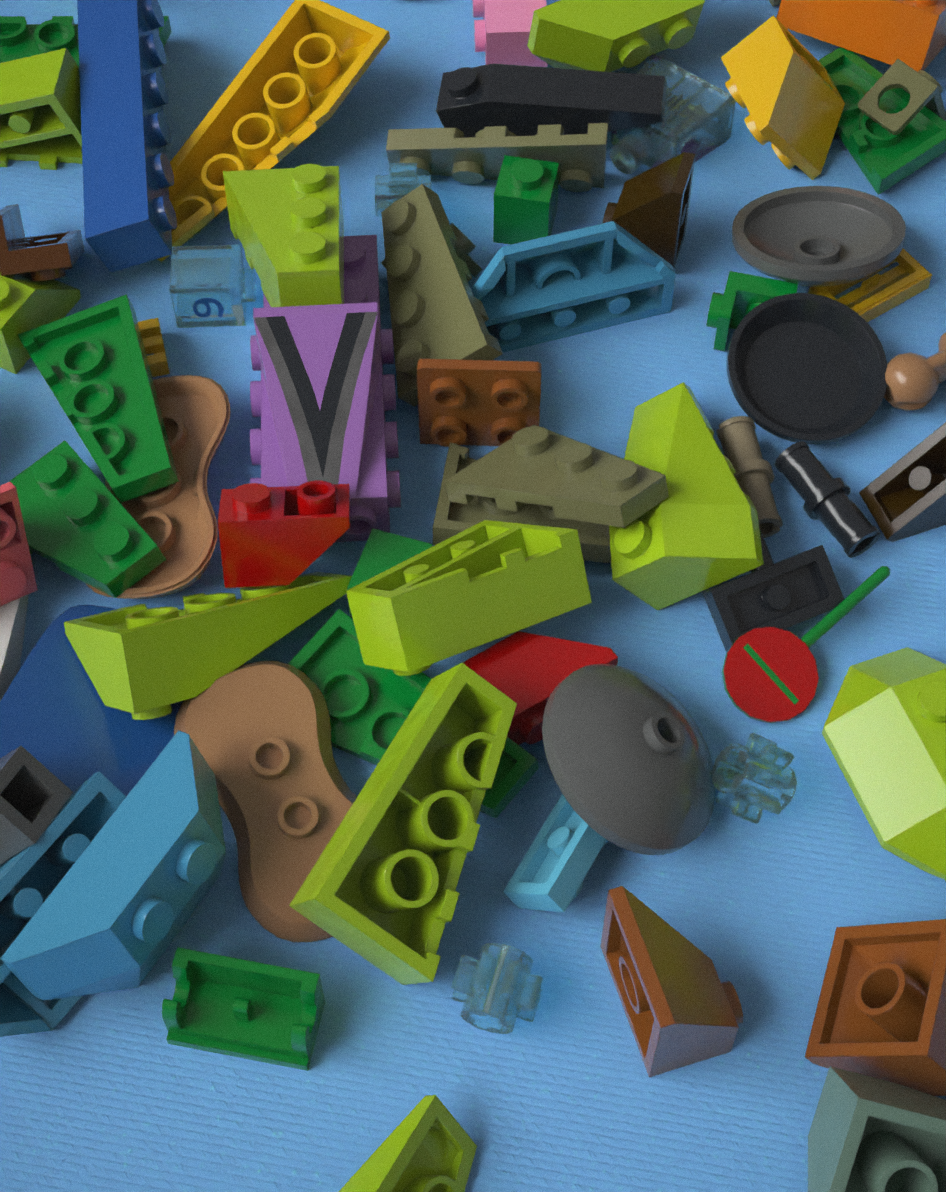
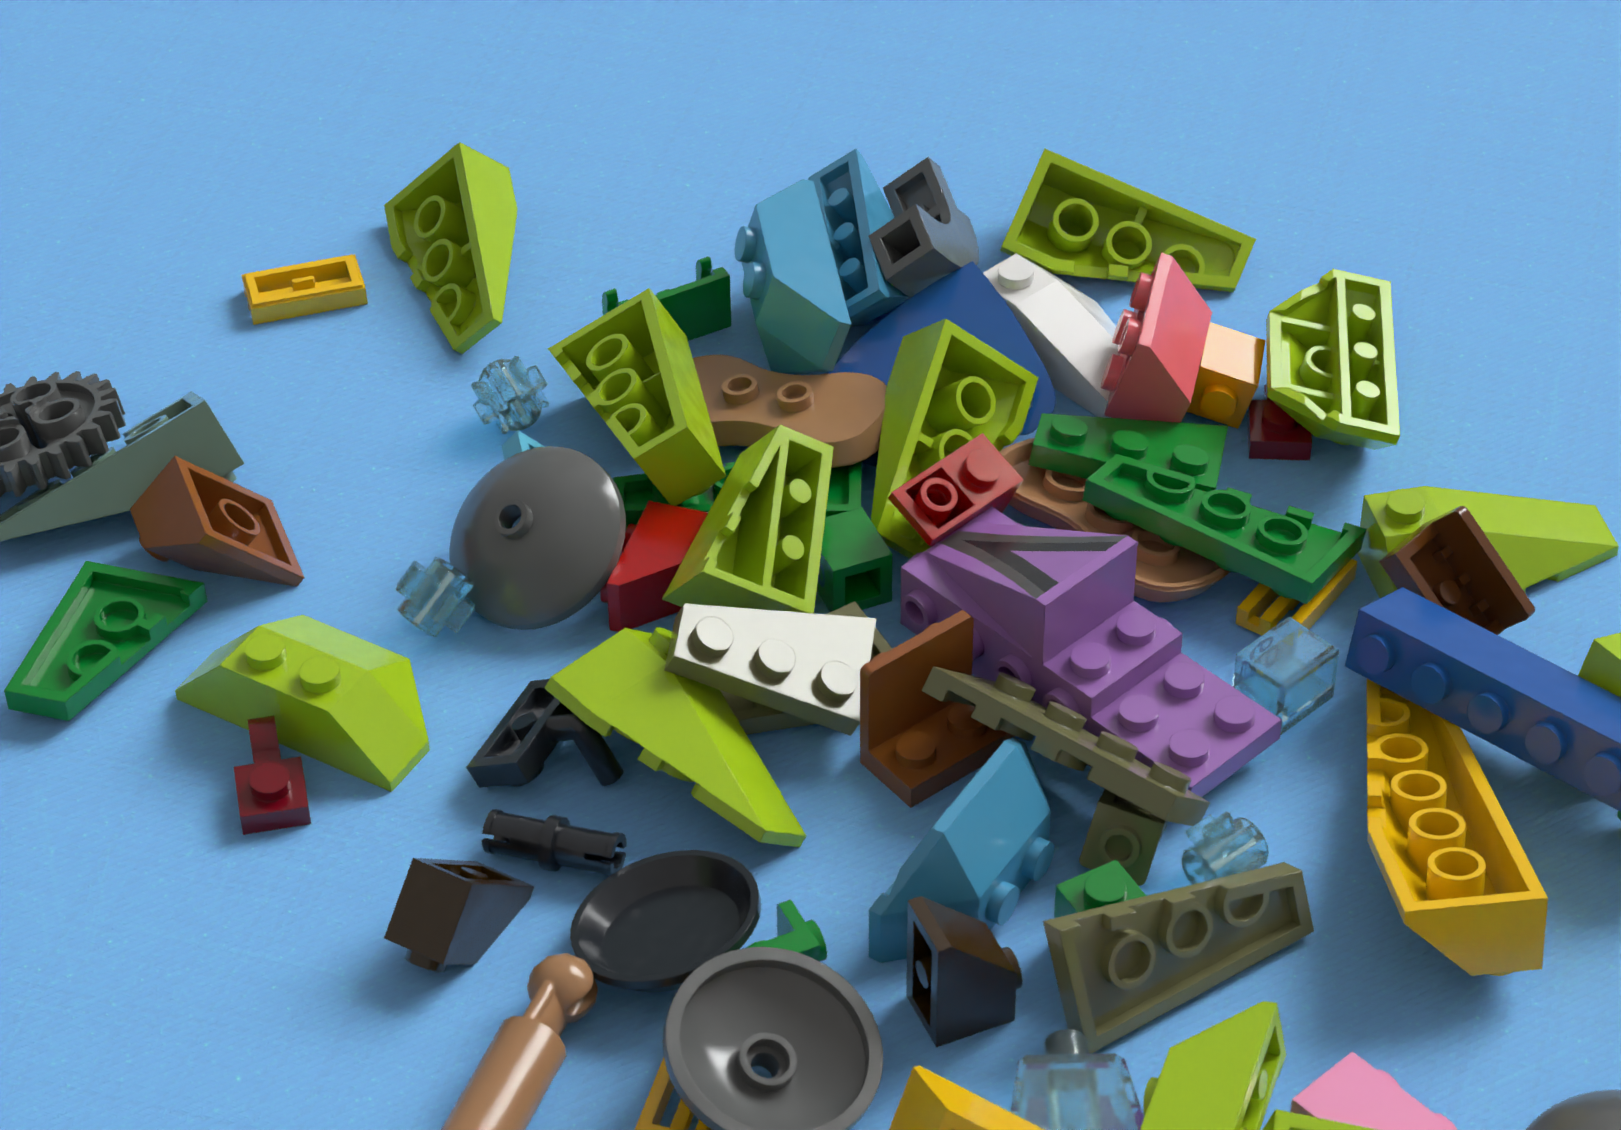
camera: 140 degrees right, 15 degrees down
(291, 231) = (1205, 656): lime wedge -> none
(548, 96) = (1130, 1027): black wedge -> none
(666, 987) = (395, 435): slope -> none
(752, 471) = (636, 816): dark tan pin -> none
(774, 672) = (480, 695): red piece -> none

